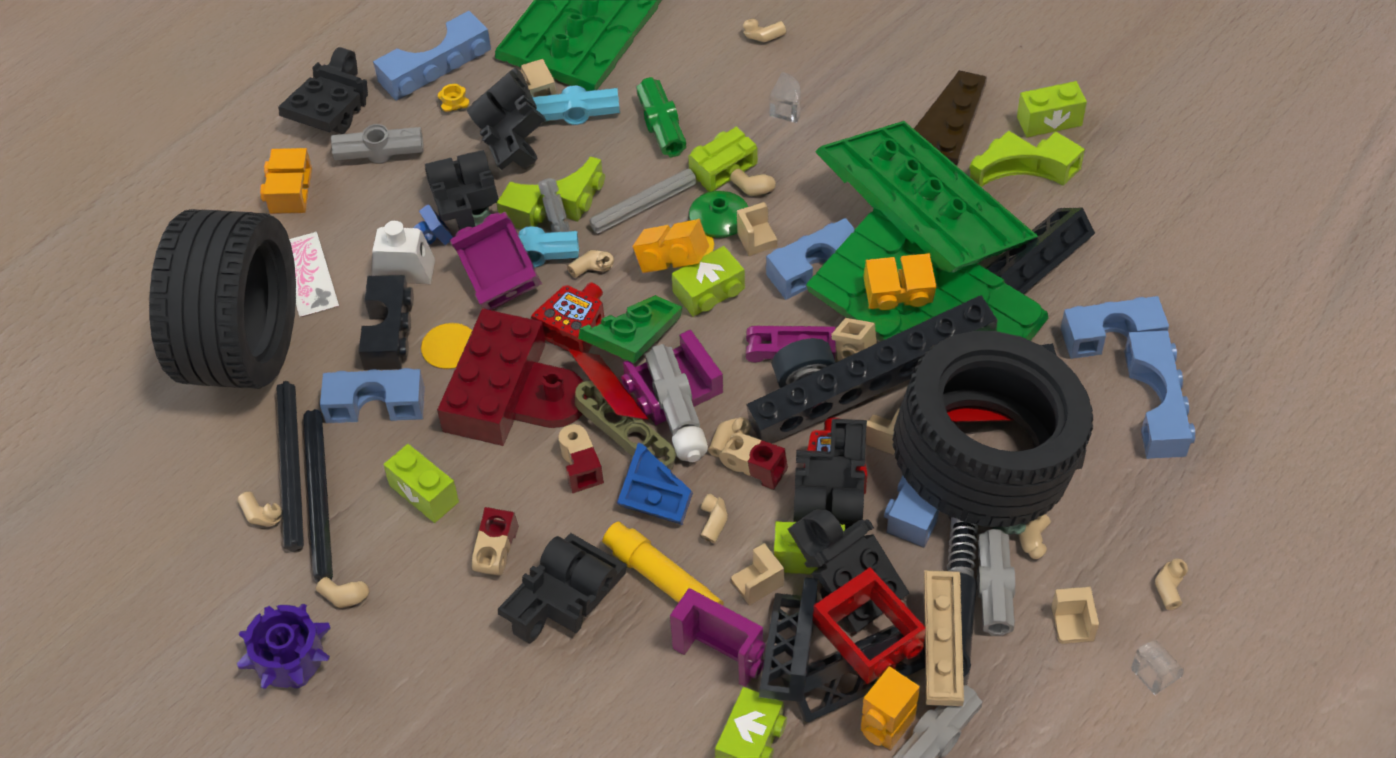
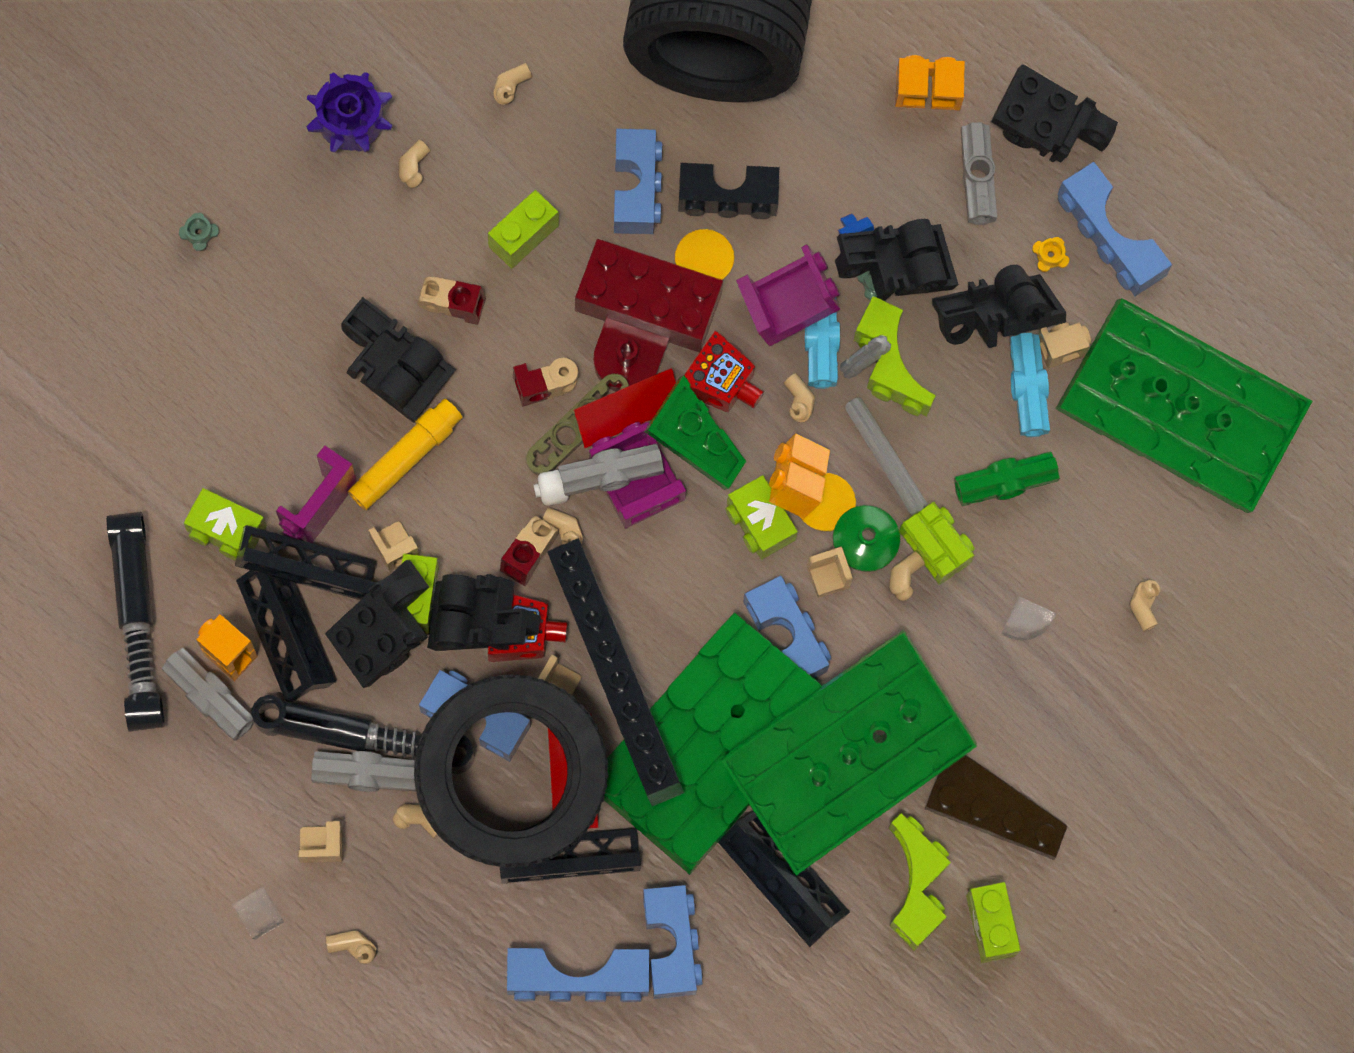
camera: 85 degrees right, 20 degrees up
(289, 467) = (562, 108): black axle -> none
(313, 279) = (809, 114): white sticker -> none
(317, 495) = (524, 136): black axle -> none
(402, 253) = (809, 200): white torso -> none
(654, 488) = (499, 450): blue wing -> none
(717, 517) = (465, 511): tan arm -> none
(780, 337) = (675, 600): magenta plate -> none
(801, 360) = (632, 604): black wheel -> none
(849, 344) = (659, 659): tan brick -> none
(852, 596) = (315, 591): red window -> none
(915, 280) = (717, 688): light orange piece -> none
(943, 638) = (293, 704): tan tile -> none

